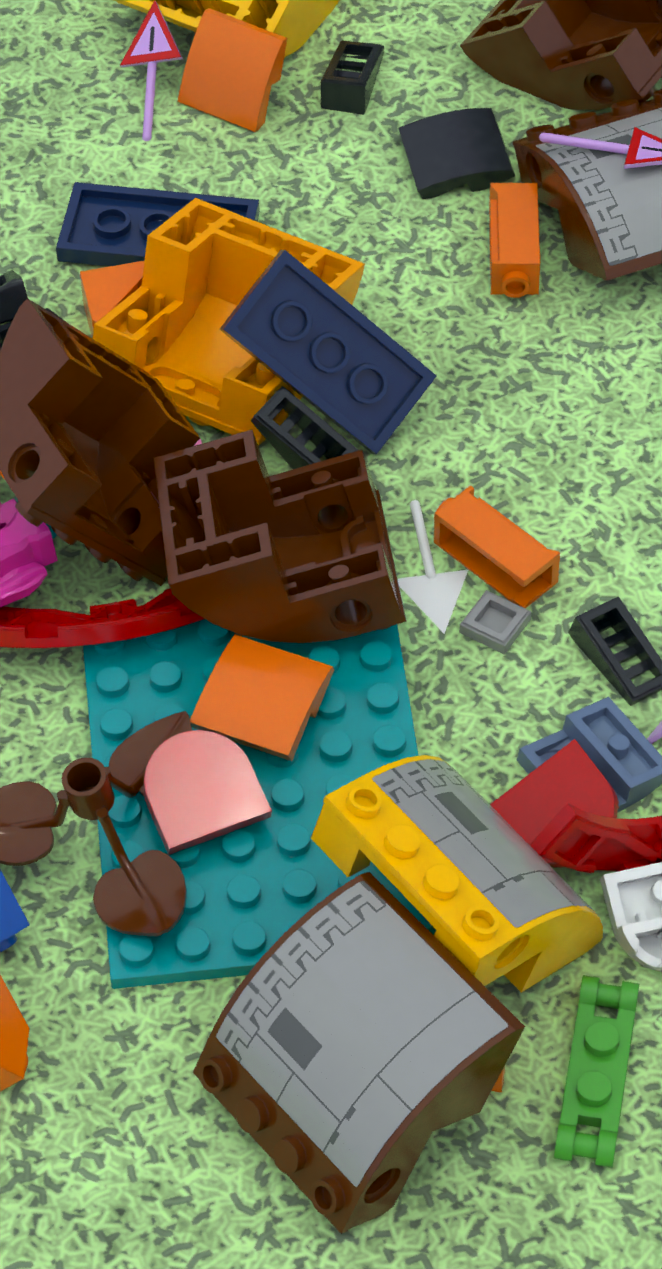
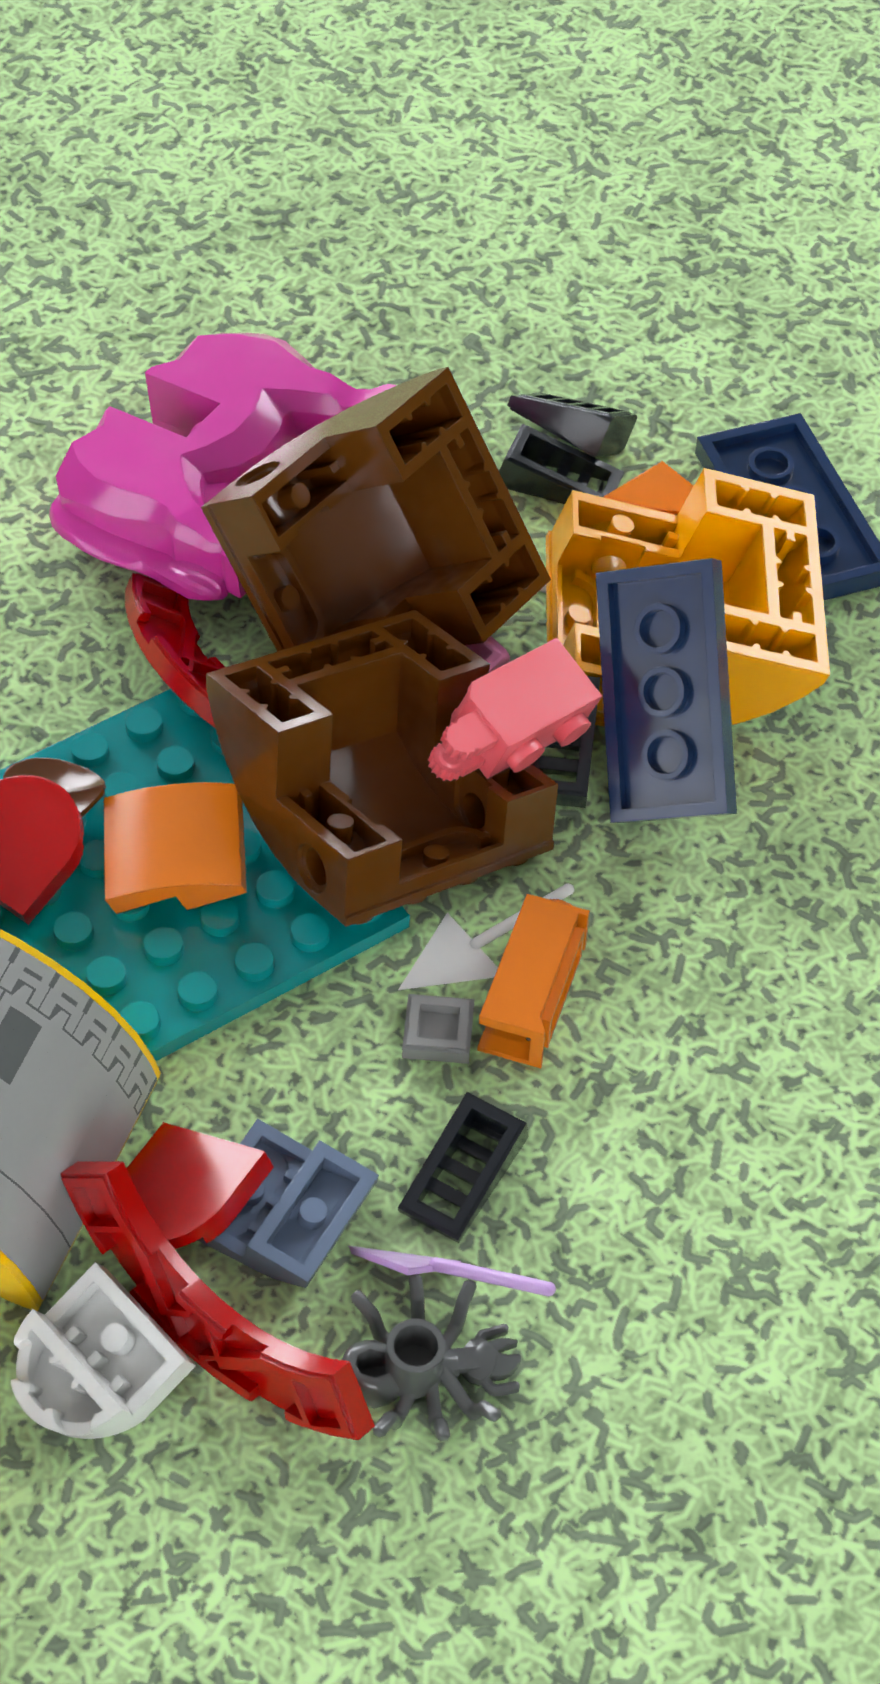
camera: 60 degrees right, 0 degrees up
(302, 436) = (516, 714): none -> coral hinge

